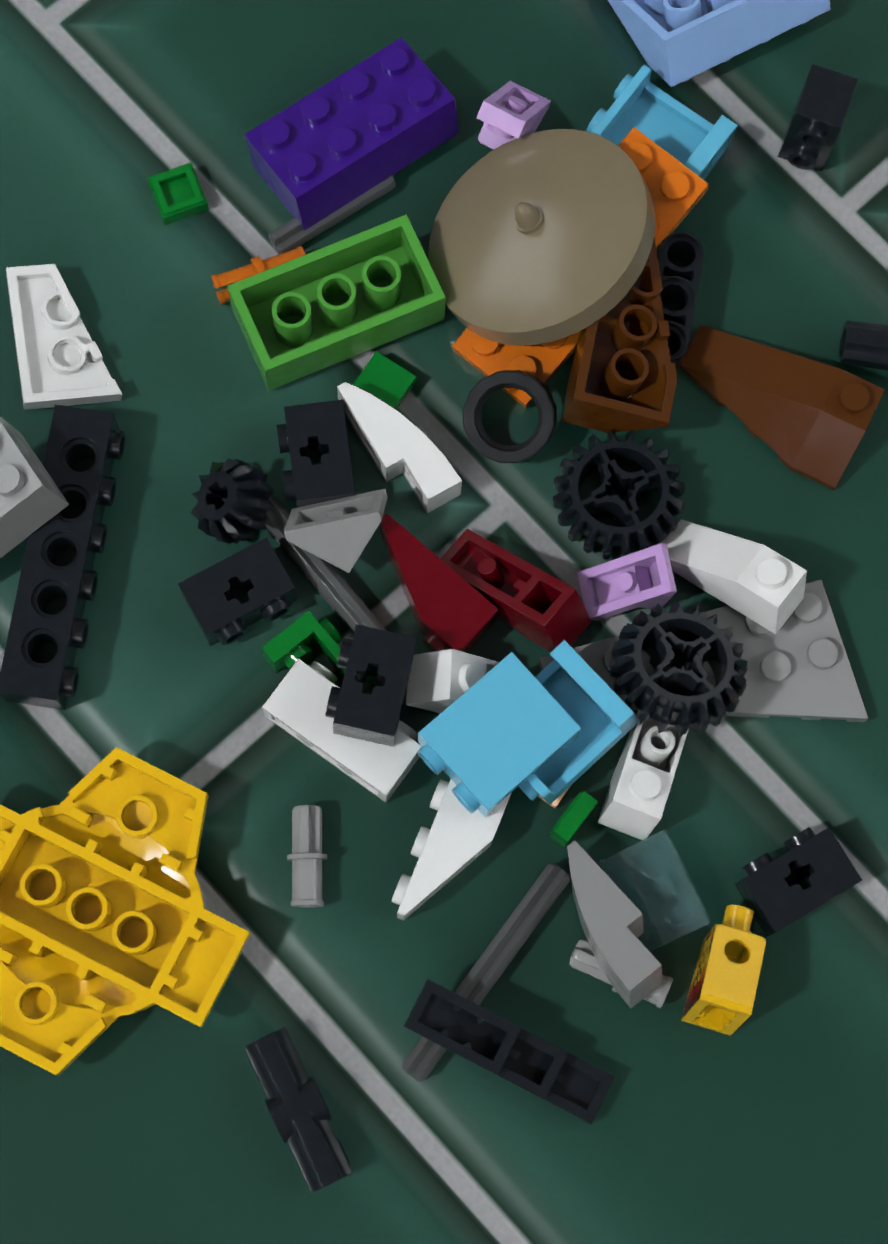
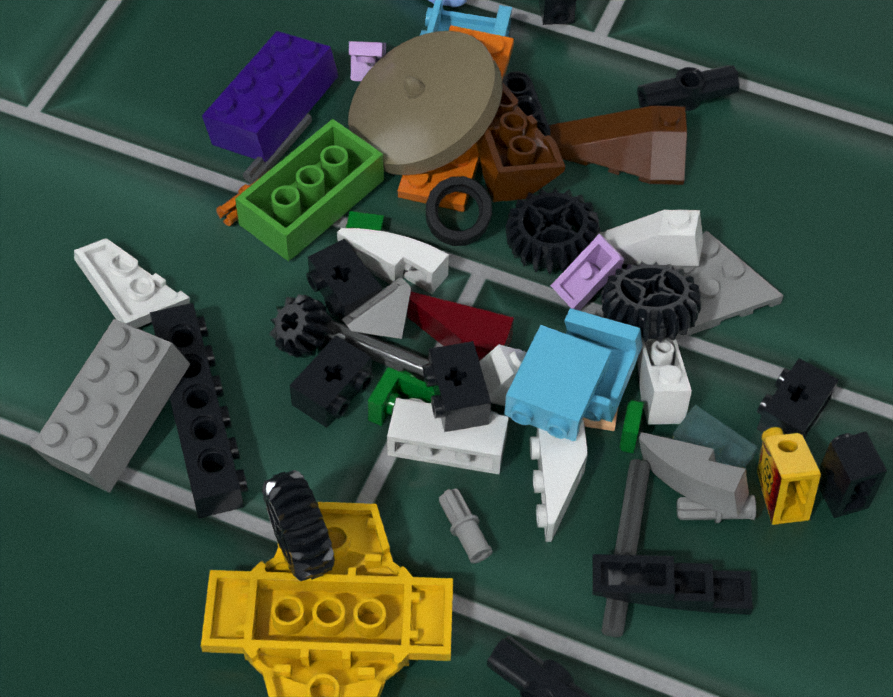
camera: 20 degrees left, 20 degrees down
(85, 798) = (298, 525): none -> black gear
(177, 193) = (169, 174): green tile -> none
(525, 595) = (529, 304): dark red slope -> none
(801, 1013) = (850, 474): none -> black brick

